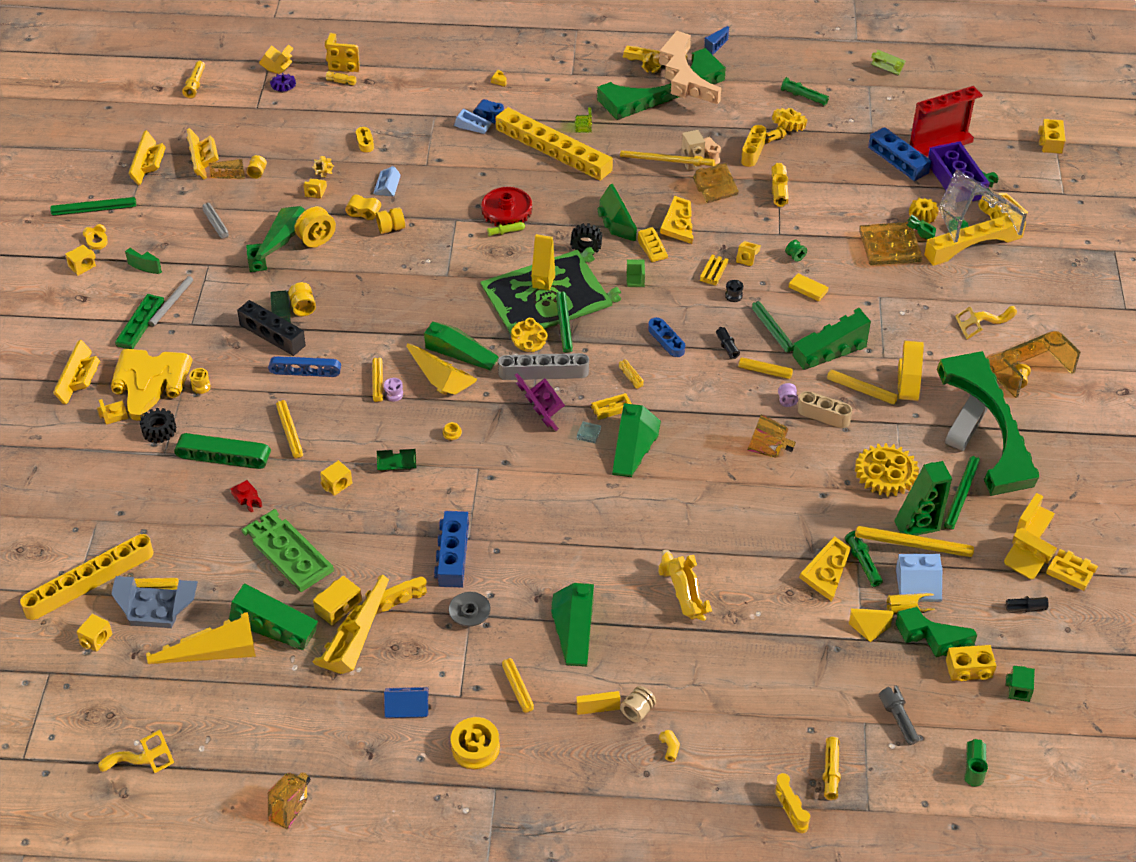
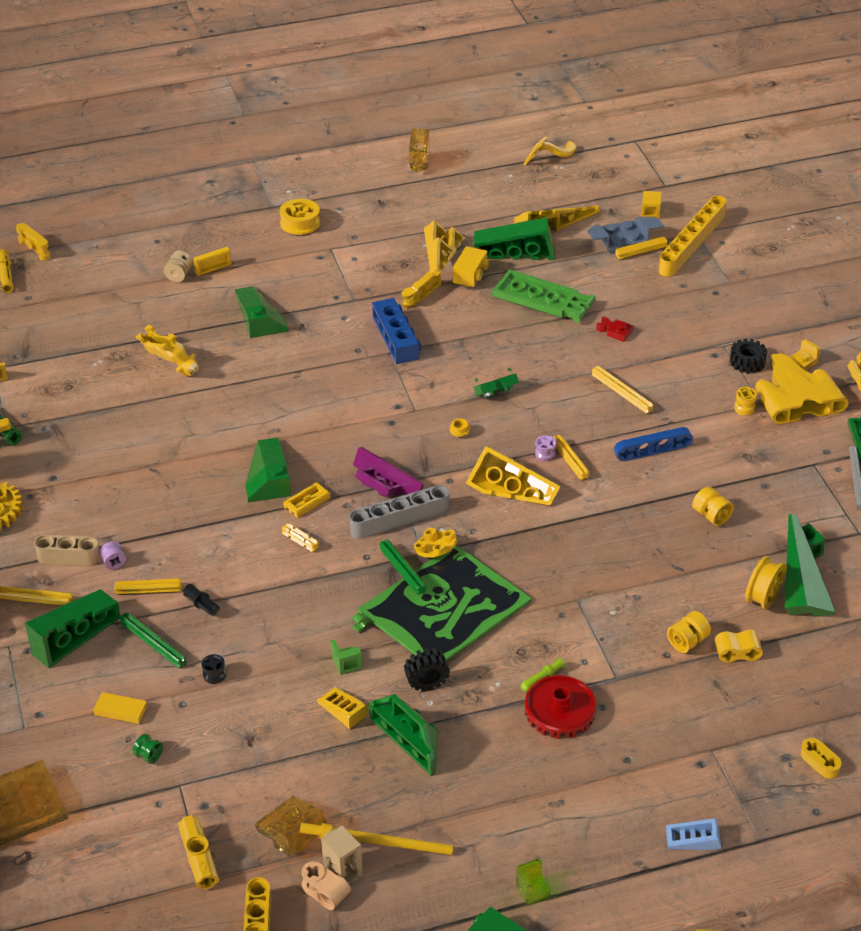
camera: 160 degrees right, 5 degrees down
(222, 451) = (667, 350): green beam -> none
(271, 327) = (720, 468): black brick -> none
(279, 298) = (743, 504): clear green slope -> none
(315, 188) = (821, 659): yellow bracket -> none
(323, 166) = (834, 685): yellow gear -> none
(336, 478) = (541, 355): yellow brick -> none
(387, 182) = (739, 701): light blue slope -> none
(406, 702) = (372, 230): blue panel -> none
(458, 345) = (512, 512): green wedge -> none
(469, 602) = (354, 292): dark grey dish -> none
(488, 110) = (682, 856): blue piece -> none
(517, 685) = (286, 261): yellow axle -> none
(543, 262) = (455, 598): yellow slope -> none
(554, 143) = (555, 825): yellow brick -> none
(588, 432) = (319, 468): clear light blue tile -> none
(668, 344) = (281, 599): blue beam -> none
(673, 744) = (143, 257): yellow arm -> none
(678, 220) = (323, 752): yellow wing -> none
(717, 261) = (251, 683): yellow tile -> none
(747, 252) = (212, 730): yellow bracket -> none
(770, 438) = (120, 495): clear yellow torso -> none
(826, 568) = (35, 405): yellow wing -> none

